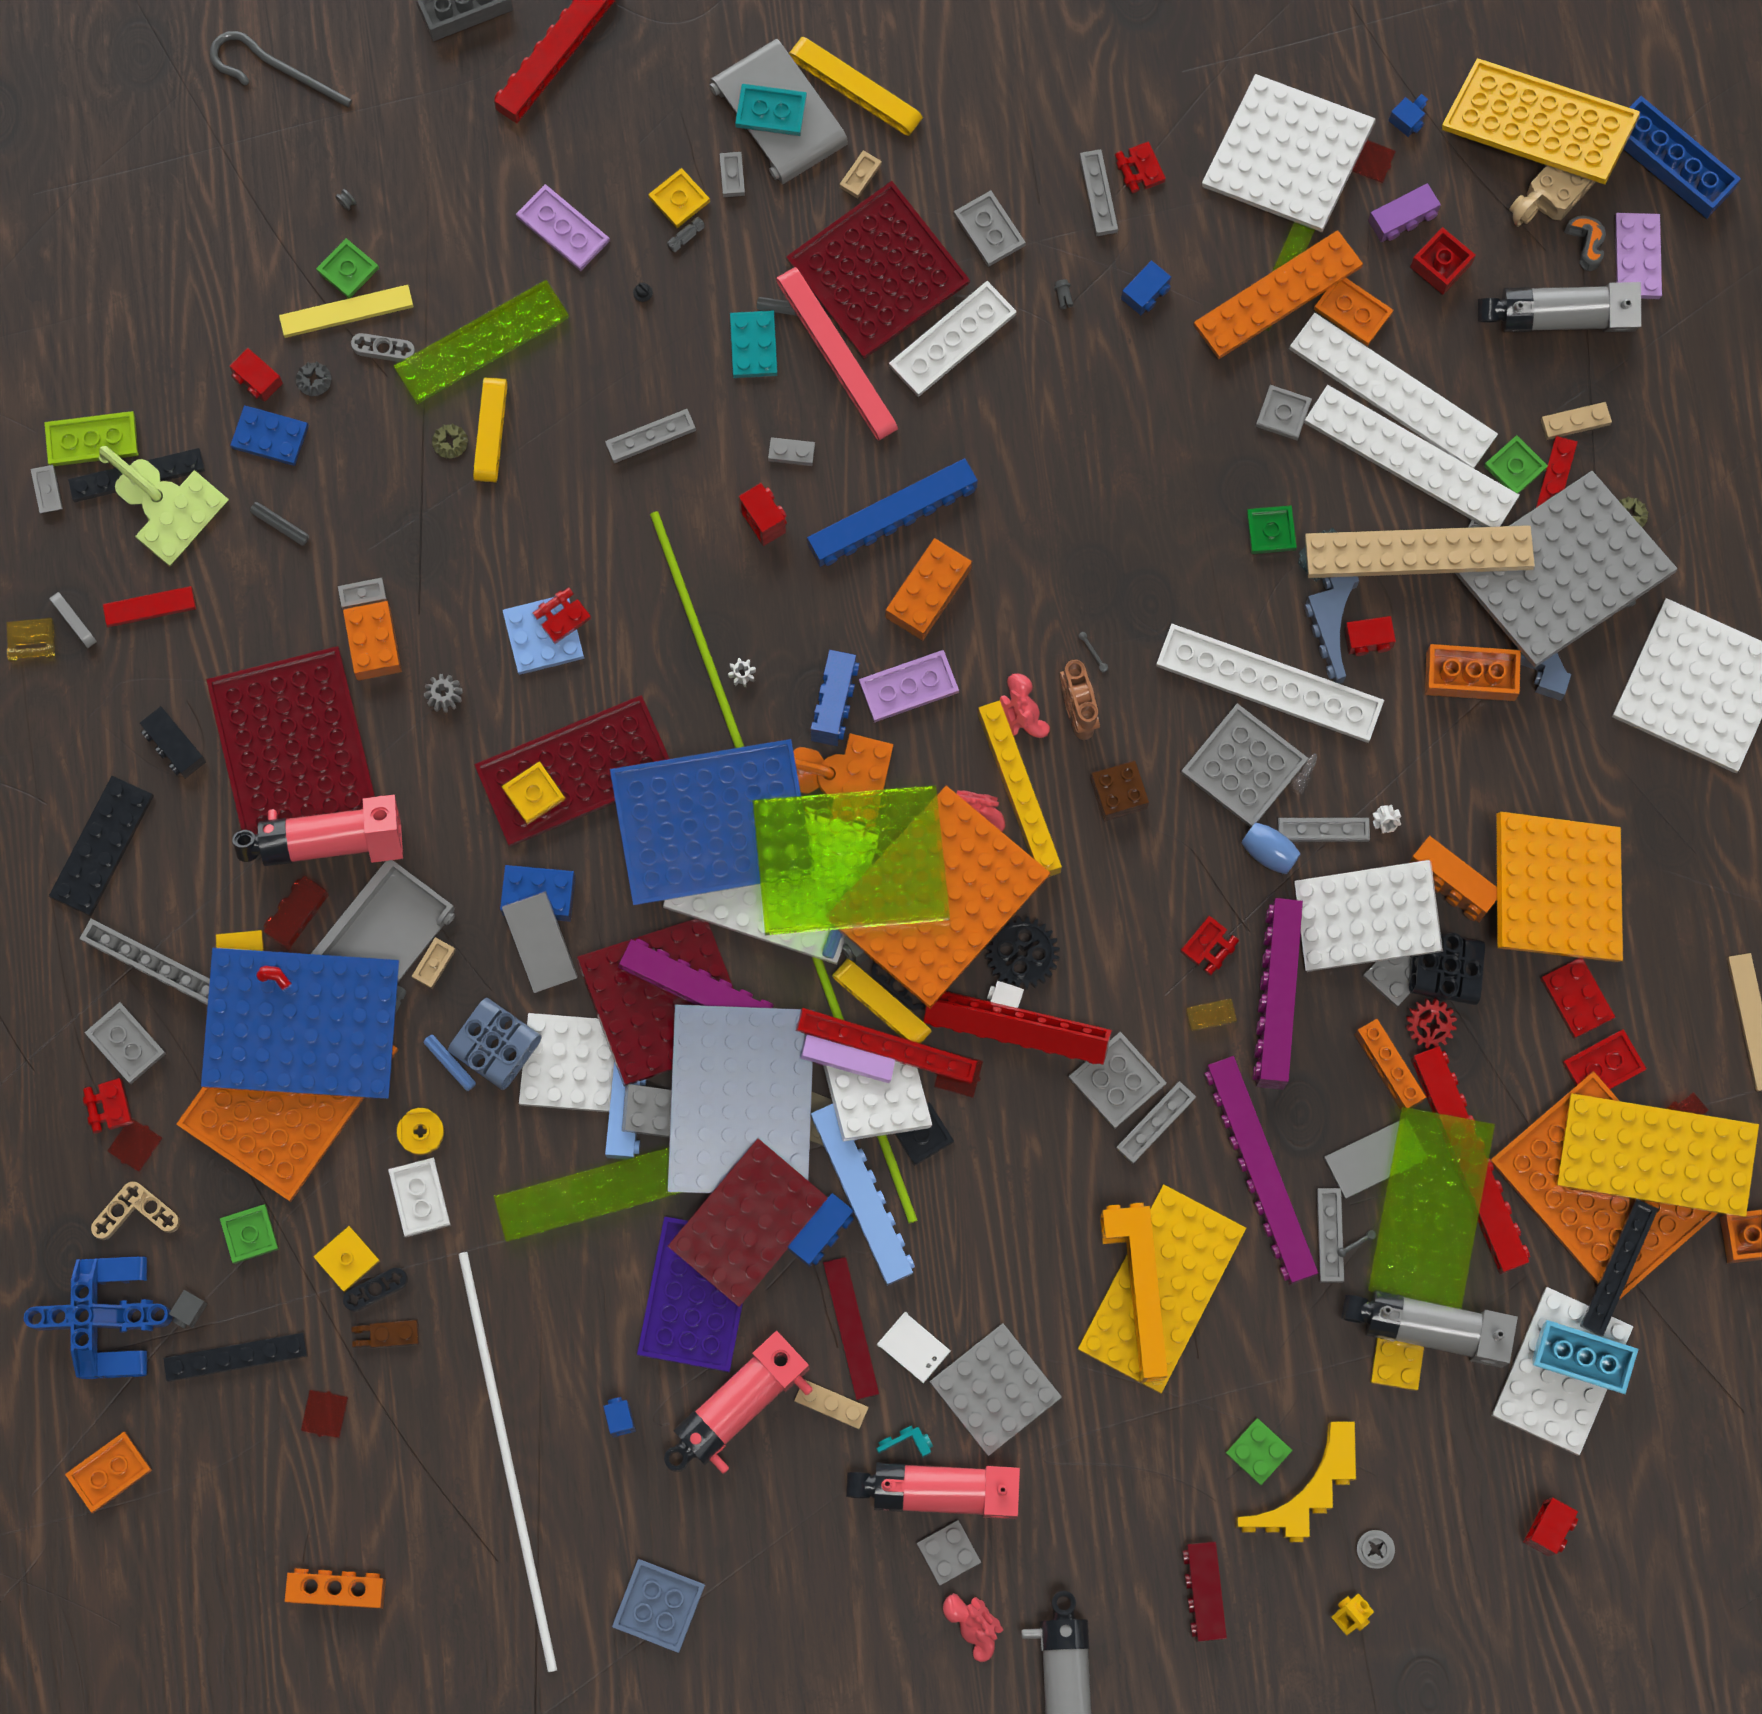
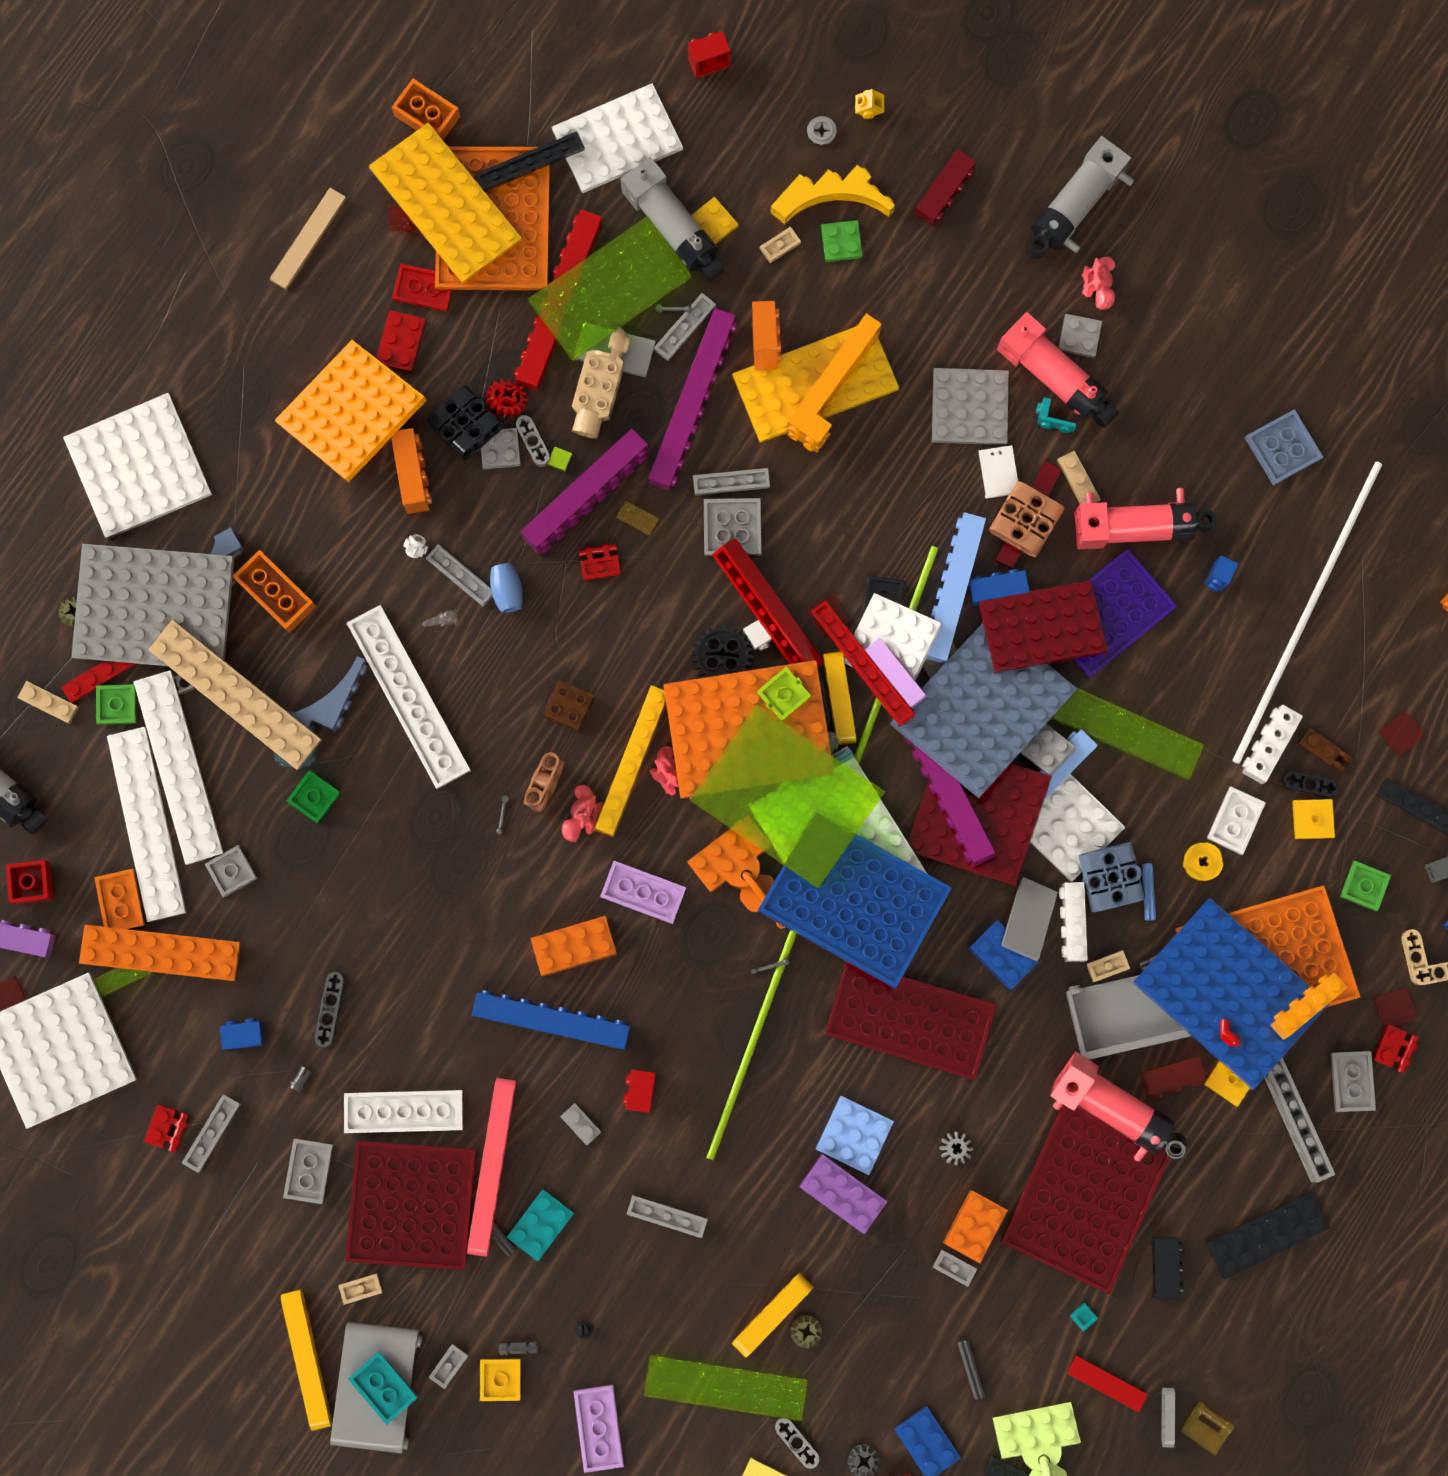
camera: 140 degrees left, 5 degrees up
(214, 645) = (1083, 1317): none -> teal tile
(218, 1061) = (1308, 1006): none -> light orange brick
(441, 1295) = (1272, 744): none -> white brick
(497, 977) = (1073, 922): none -> white brick
(511, 574) = (843, 1194): none -> medium lavender brick
(533, 793) = (952, 1024): yellow plate -> none
(565, 621) = (833, 1128): red plate -> none
(730, 728) = (786, 961): none -> dark grey hinge
(746, 668) = (747, 998): white gear -> none
(833, 698) = (700, 924): wedge -> none
(869, 1337) = (1032, 537): none -> nougat connector
(932, 946) = (784, 694): none -> lime plate
(1095, 368) = (327, 1009): none -> dark grey beam
(1244, 765) = (473, 656): light grey plate -> none
(1246, 1283) = (766, 335): none -> orange brick
(1313, 1395) = (780, 245): none -> tan plate
(1332, 1011) = (560, 459): none -> lime tile
(1357, 1106) = (599, 385): none -> tan brick
(1358, 994) = (522, 431): none -> light grey beam
(1369, 635) = (316, 672): red brick -> none
(1369, 916) = (485, 491): white plate -> none
(1389, 1065) = (555, 394): orange brick -> none
(1584, 1356) = (601, 127): medium azure brick -> none

